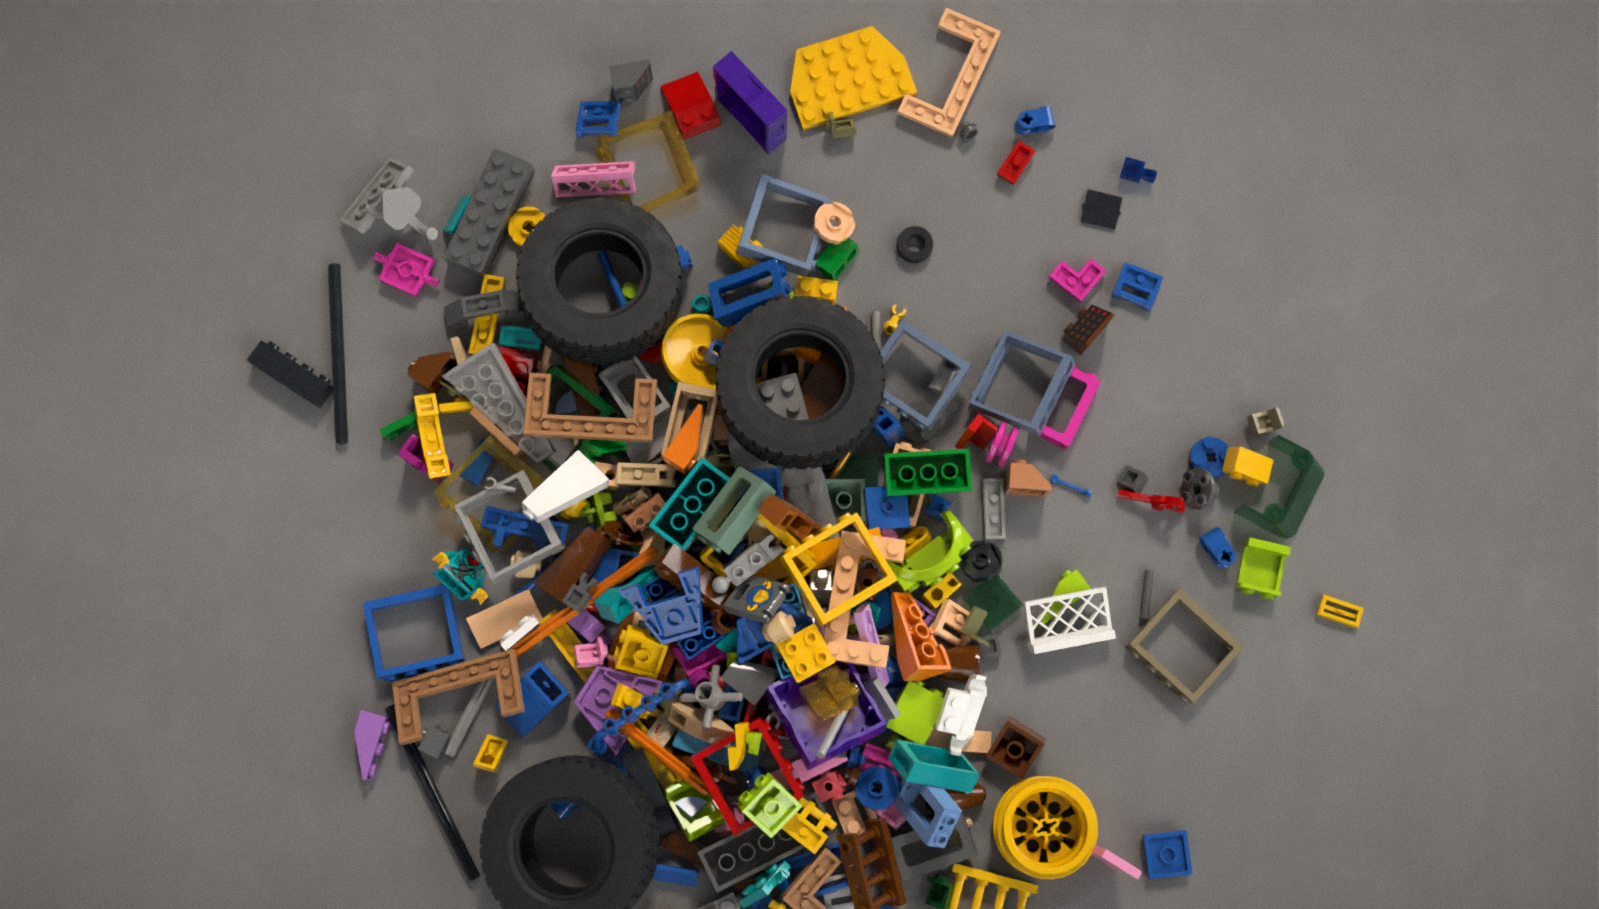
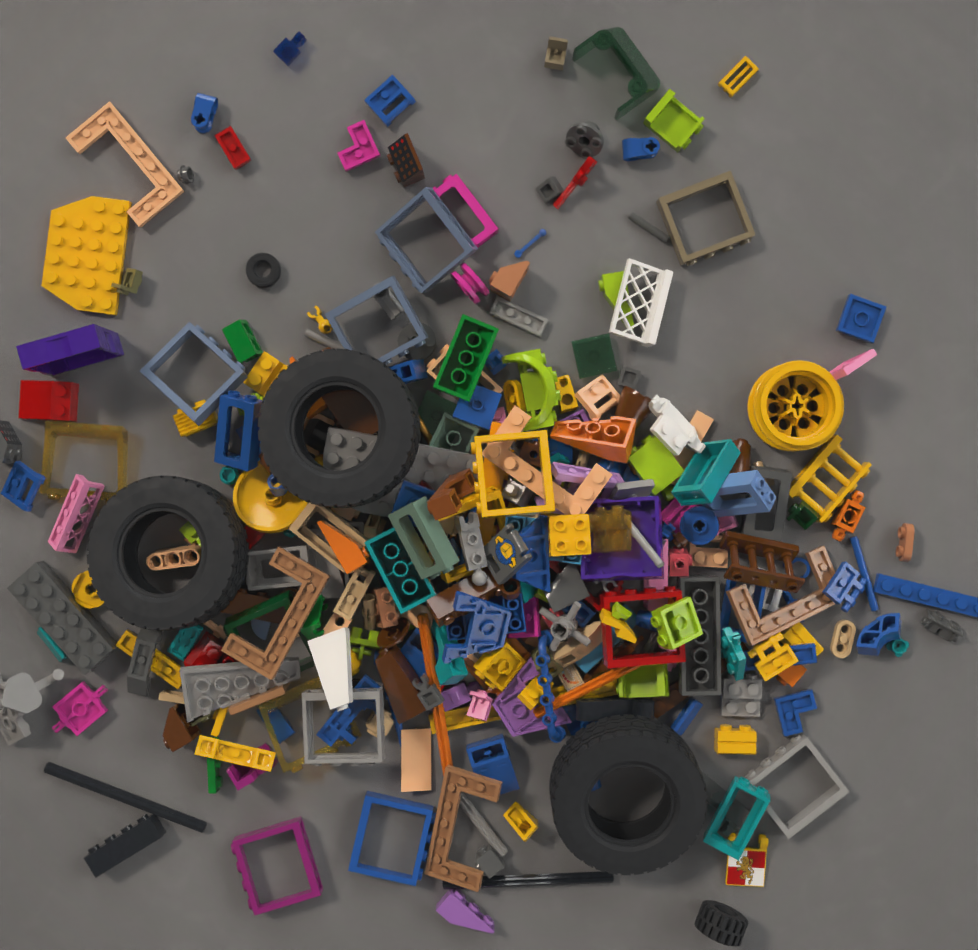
camera: 60 degrees left, 10 degrees up
(353, 559) = (306, 855): none -> magenta window
(461, 574) = (363, 781): torso -> none
(496, 486) = (307, 718): light grey hand -> none
(524, 626) = (431, 748): white plate -> none
(591, 284) = (167, 557): none -> light nougat beam
(612, 278) = (171, 540): blue bar -> none
(684, 258) = (182, 471): blue plate -> none
(691, 806) = (641, 681): light blue tile -> none
(699, 676) = (543, 628): magenta plate -> none
(779, 627) = (539, 547): tan head -> none
(806, 832) = (709, 602): yellow plate -> none
(826, 230) = (216, 340): light nougat plate -> none
(973, 624) = (605, 381): olive bracket -> none
(978, 432) = (450, 297): red panel -> none
(985, 571) = (567, 344): black plate -> none
(1016, 747) = (720, 396): reddish brown slope -> none
(1101, 209) = (308, 96): black piece -> none
(1209, 445) = (562, 104): blue plate -> none
(1247, 466) = (585, 88): yellow brick -> none

